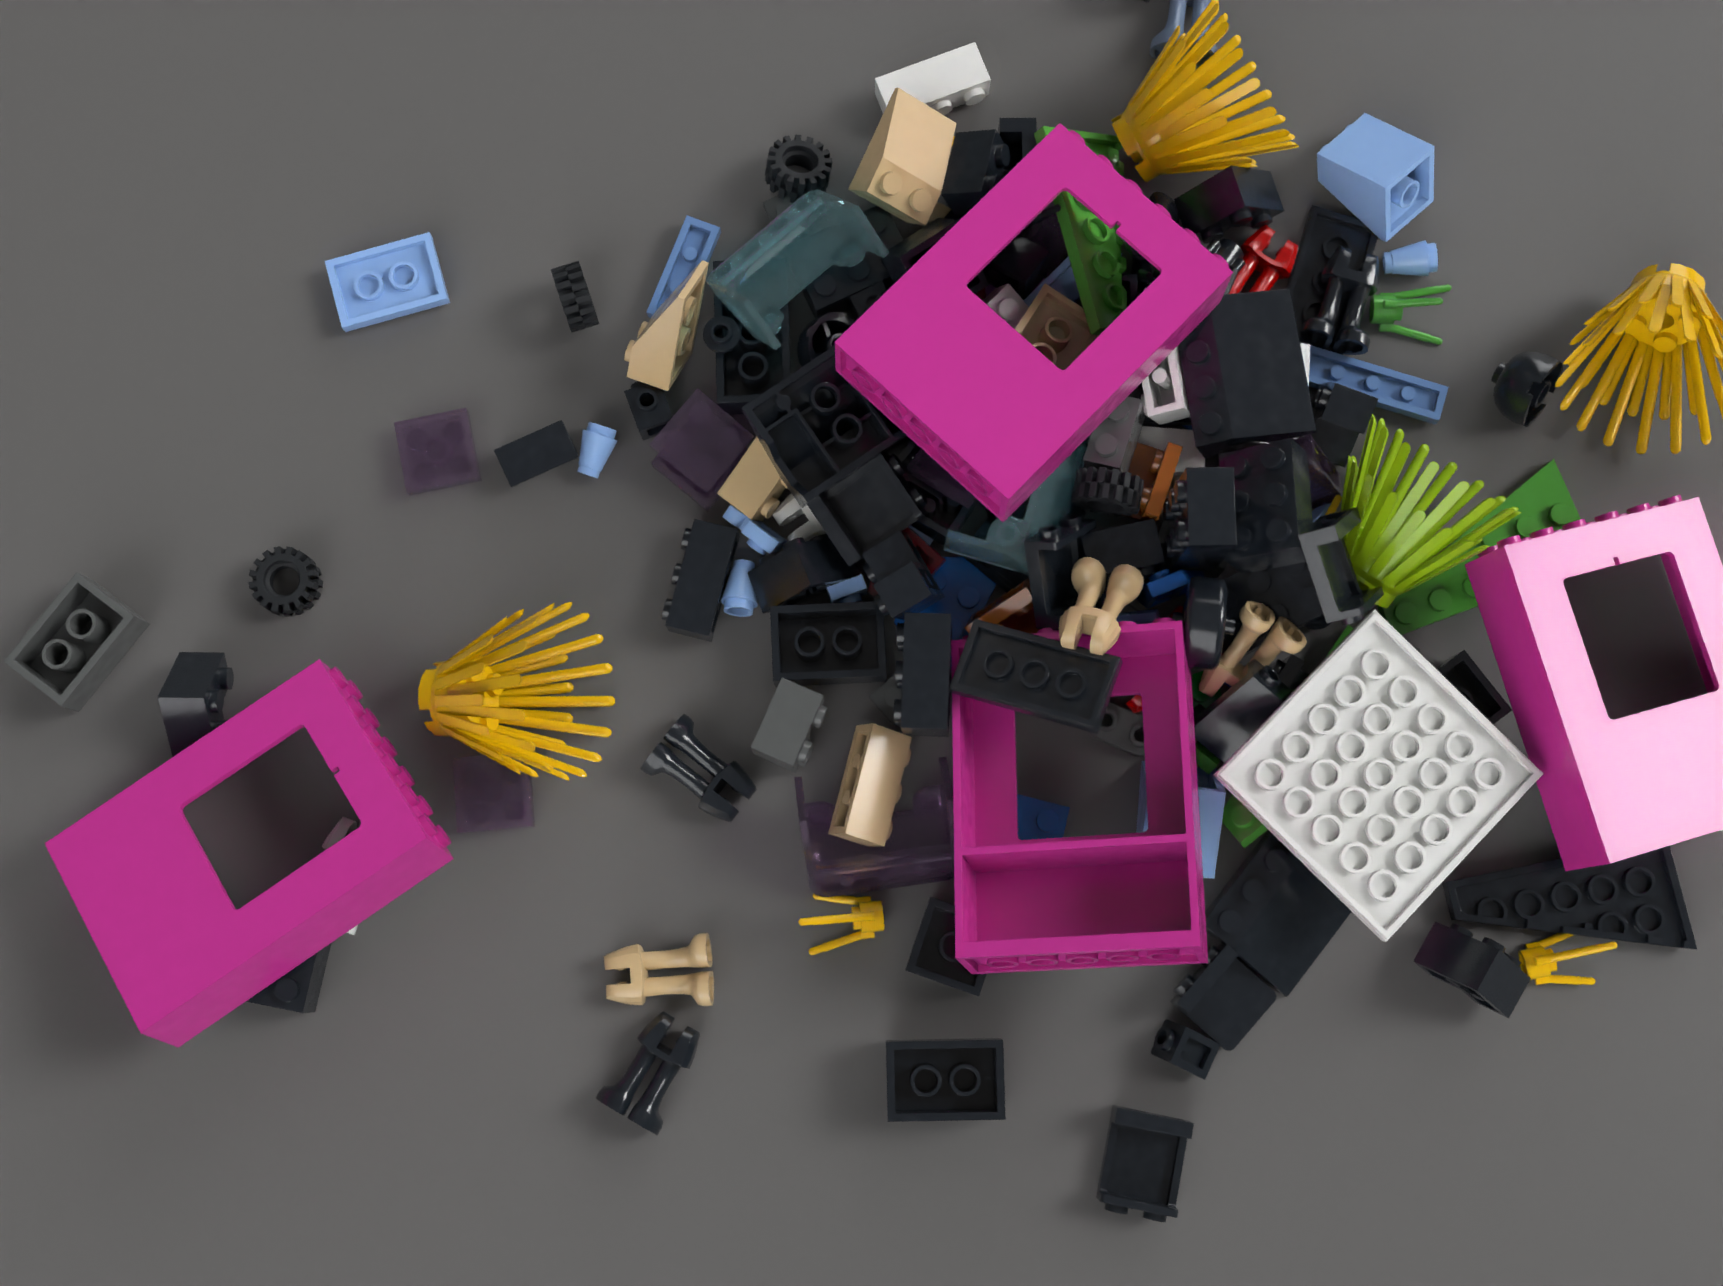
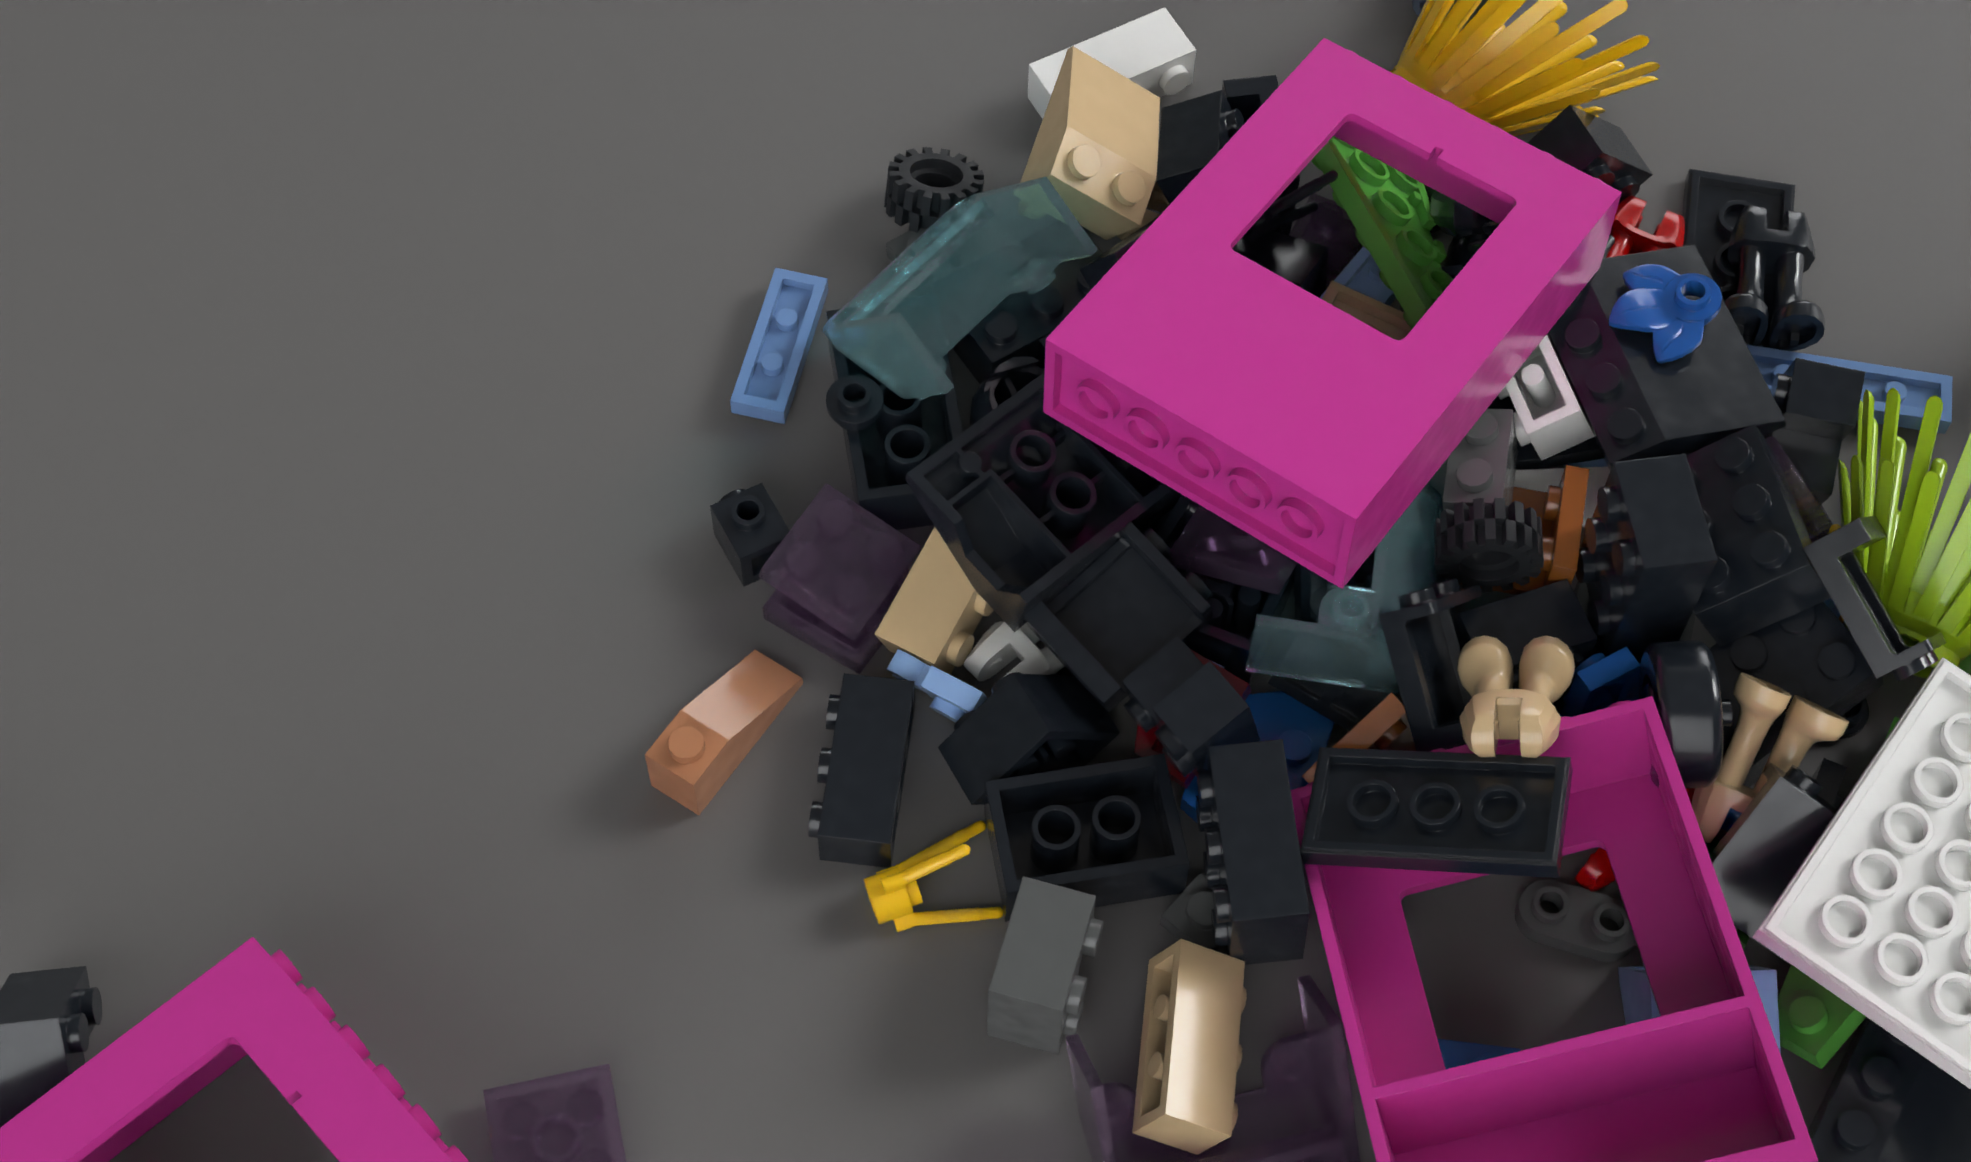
camera: 10 degrees left, 20 degrees down
(270, 566) = (166, 823): black tyre -> none
(387, 282) = (324, 404): light blue plate -> none
(437, 451) = (420, 631): clear purple plate -> none
(473, 698) = (521, 986): yellow plant -> none
(536, 453) = (578, 612): black hinge -> none
(574, 296) = (619, 386): black tyre -> none
(595, 448) = (672, 598): light blue cone -> none
(618, 539) = (719, 730): none -> nougat slope
(665, 761) = (944, 1065): black piece -> none
(669, 335) = (769, 425): tan slope -> none
(711, 659) = (896, 889): none -> yellow plant
(739, 594) = (929, 783): light blue cone -> none
(848, 590) = (1107, 747): light blue plate -> none
(1250, 341) = (1659, 306): none -> blue plate
(1378, 174) = (1777, 114): light blue slope -> none
(1388, 307) = (1838, 285): bright green plant -> none
(1413, 259) = (1852, 221): light blue cone -> none

